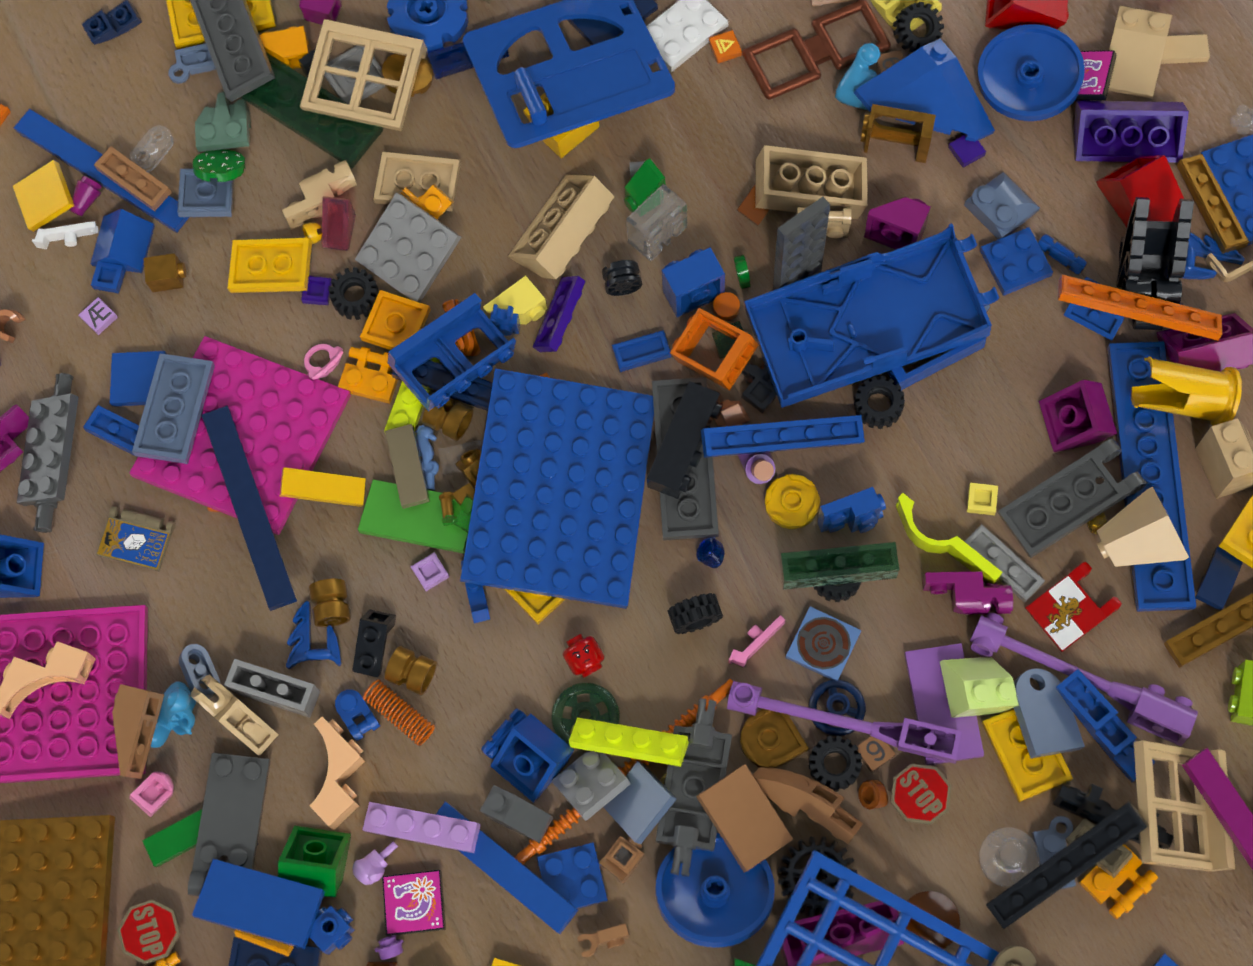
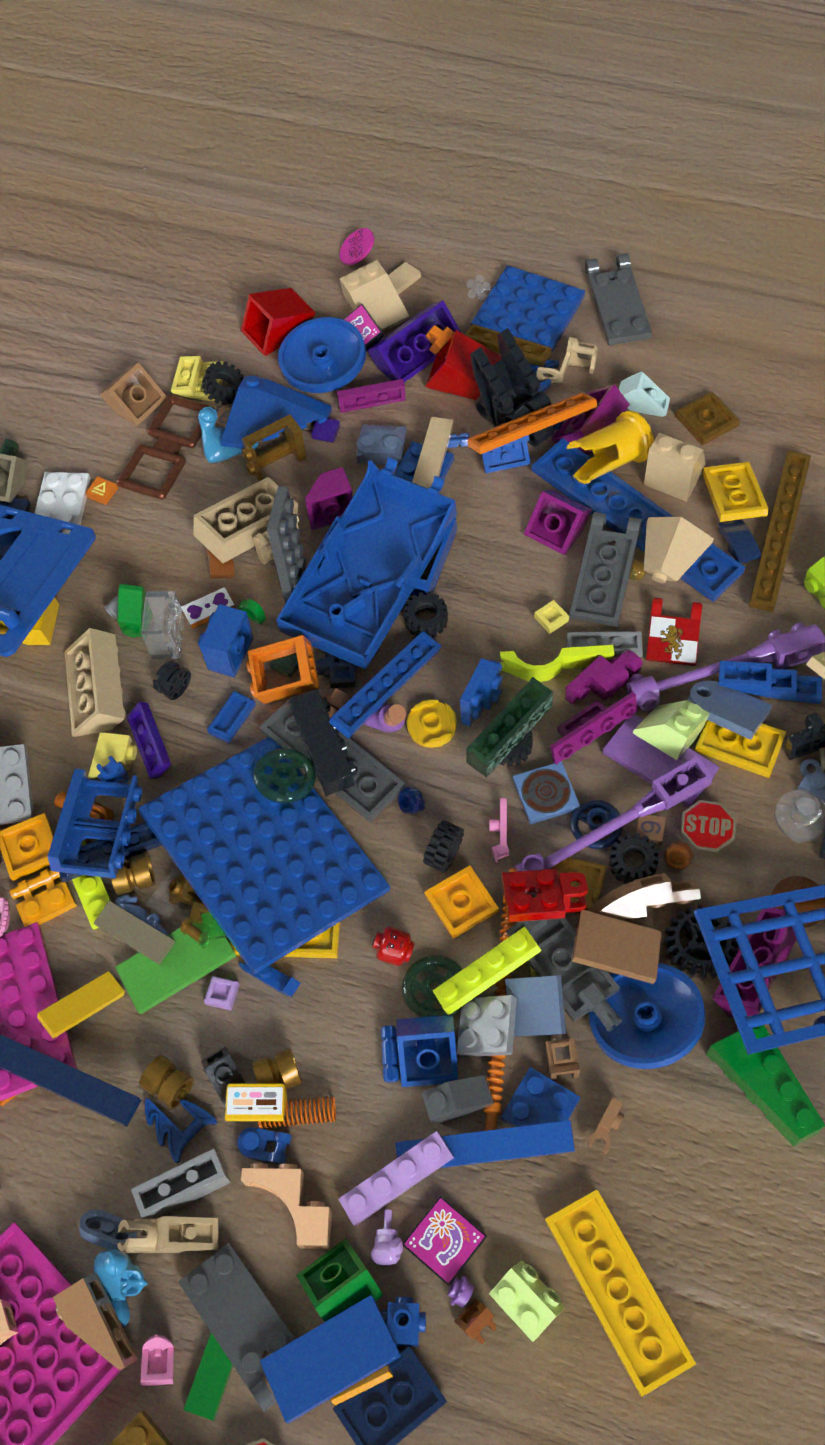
camera: 45 degrees left, 10 degrees down
(372, 679) = (255, 1102): none -> slope
(613, 457) = (283, 795): none -> clear green plate
(668, 669) = (461, 902): none -> light orange plate
(708, 234) = (199, 611): none -> tile
(726, 306) = (261, 638): orange tile -> none
(733, 735) = (552, 894): none -> red plate
(913, 621) = (589, 725): none -> magenta bracket
(1029, 258) = (433, 451): none -> tan tile
(1037, 150) = (371, 395): none -> magenta plate
(1149, 145) = (438, 338): none -> orange tile

